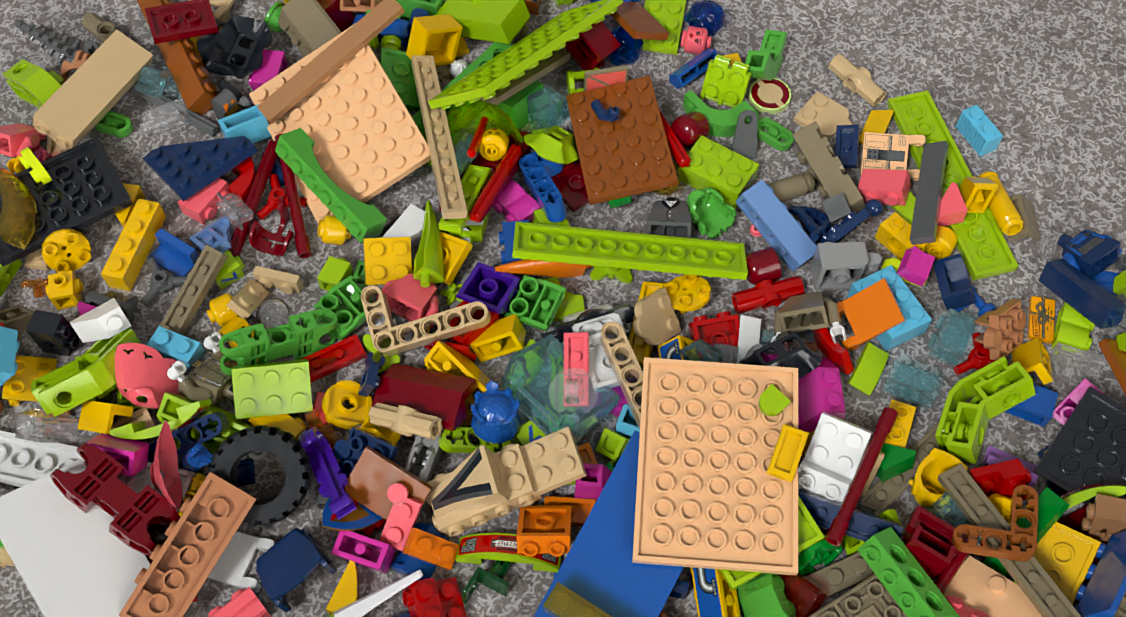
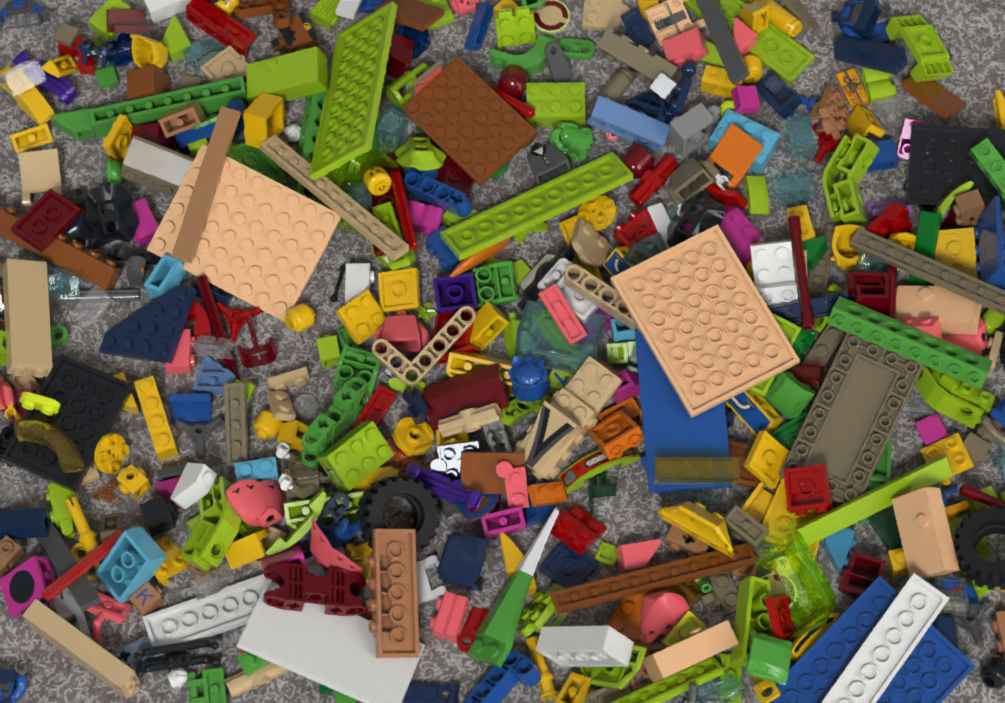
camera: 30 degrees left, 5 degrees up
(301, 238) = (218, 280): dark red piece -> none
(359, 218) = (237, 275): bright green arch -> none
(429, 257) = (392, 295): lime piece -> none
(474, 145) = (363, 182): red bar -> none
(573, 391) = (572, 330): clear tile -> none
(604, 114) = (447, 108): dark blue arm -> none
(772, 401) = (716, 257): lime tile -> none
(787, 453) = (746, 286): yellow tile -> none
(1015, 534) = (919, 254): dark orange beam -> none

